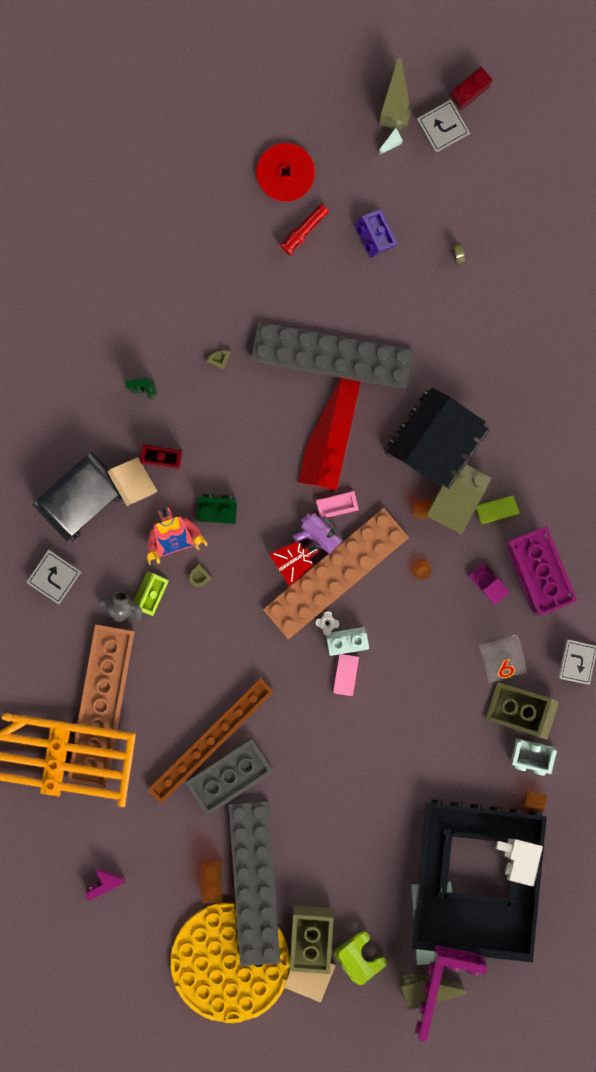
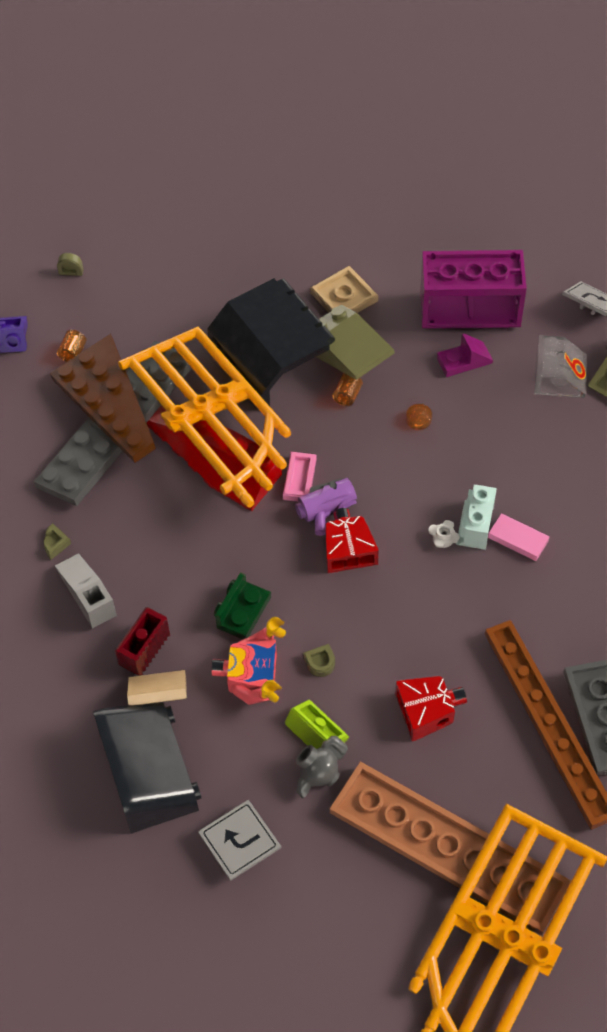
camera: 65 degrees left, 30 degrees down
(138, 385) = (40, 625): dark green bracket -> none
(188, 398) = (87, 590): none -> light grey slope
(191, 659) = (427, 704): none -> red torso
(336, 573) = (387, 508): nougat plate -> none
(349, 335) = (106, 396): none -> reddish brown wing
(356, 418) = (206, 405): none -> light orange piece
(383, 291) = (71, 345): none -> clear orange gear
(497, 510) = (382, 317): lime slope -> none
(514, 472) = (344, 289): none -> tan tile

